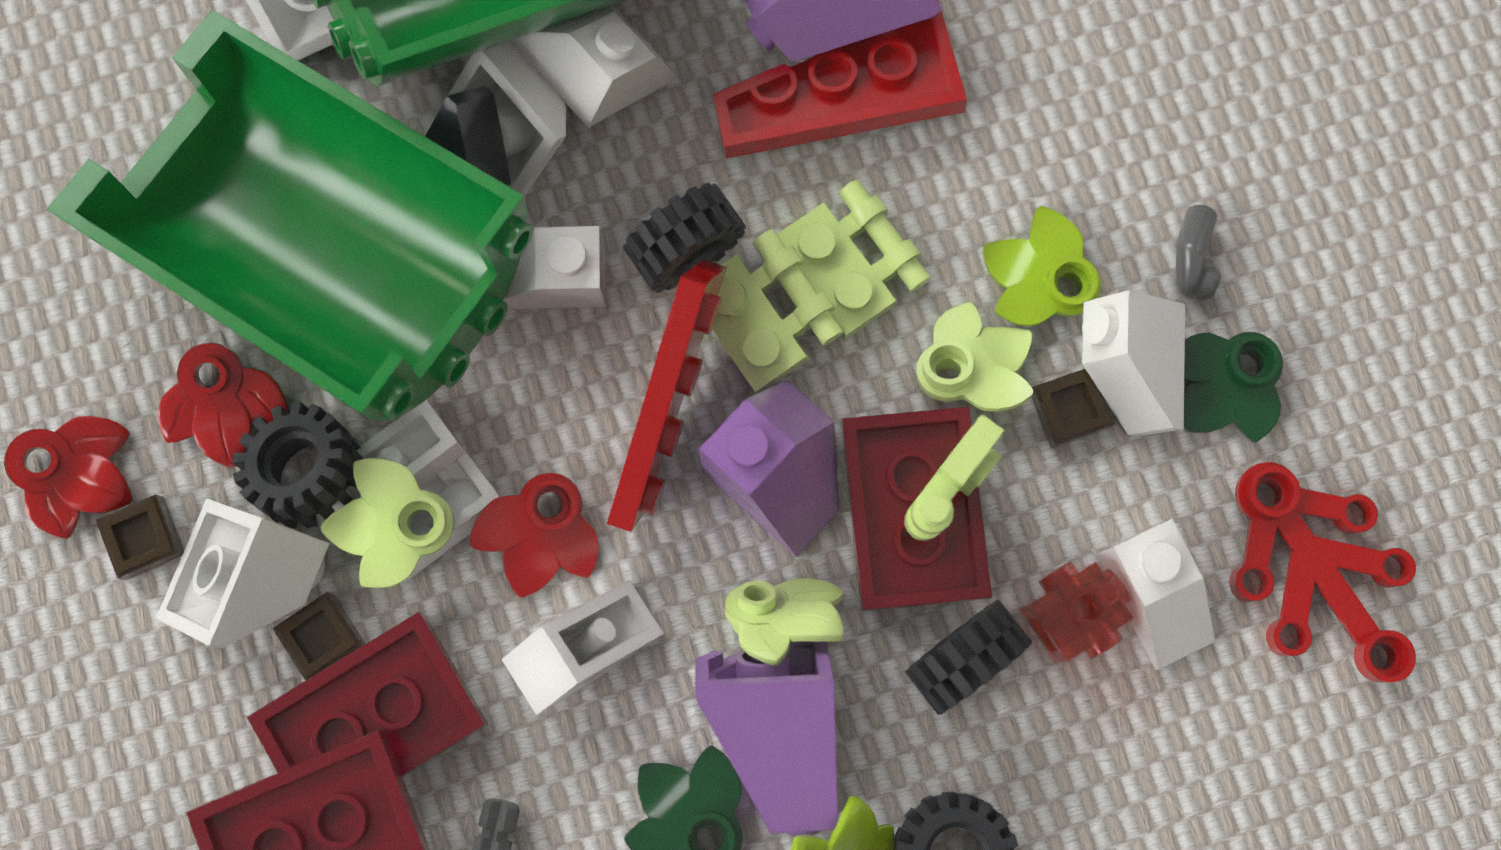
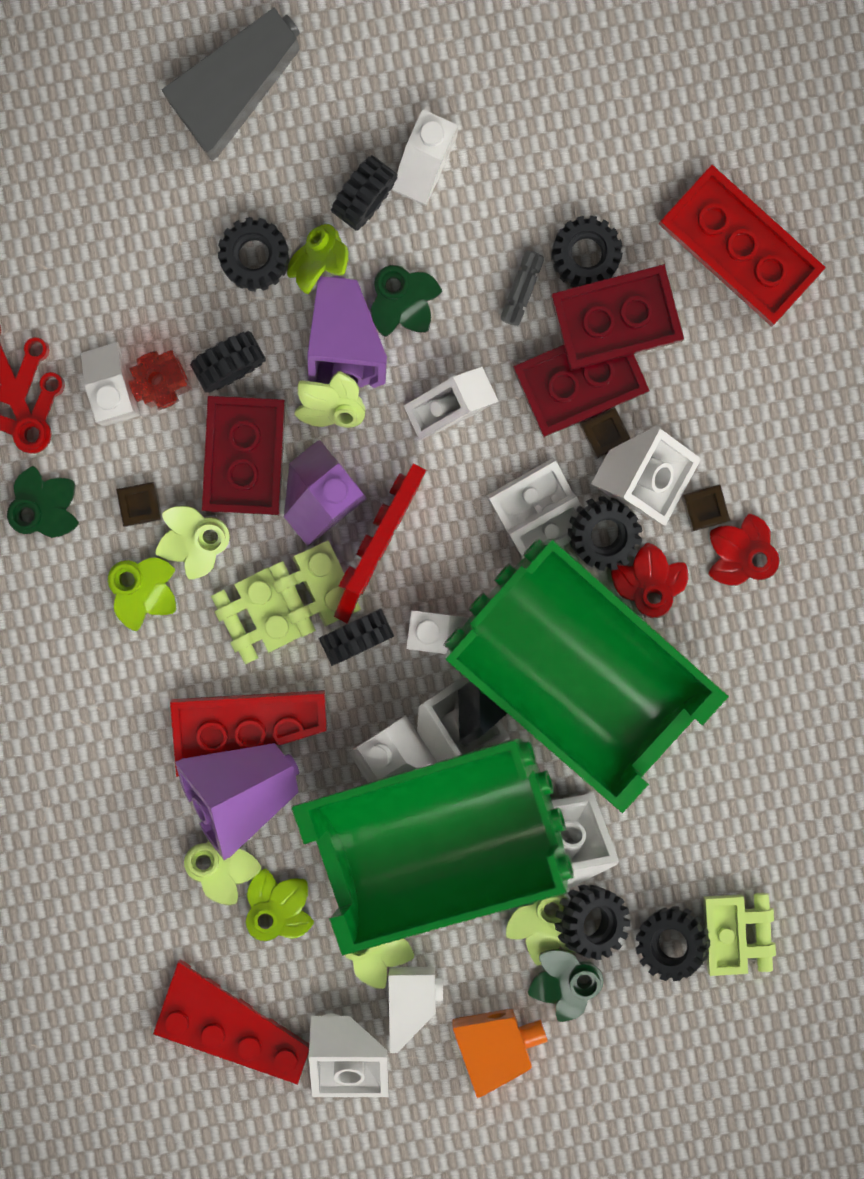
camera: 170 degrees left, 10 degrees up
(381, 519) = (560, 490): yellowish green plate -> none
(534, 543) = (469, 468): red plate -> none
(961, 471) = (214, 467): yellowish green plate -> none
(1137, 359) = (95, 523): white slope -> none
(1191, 250) = (48, 589): dark grey arm -> none

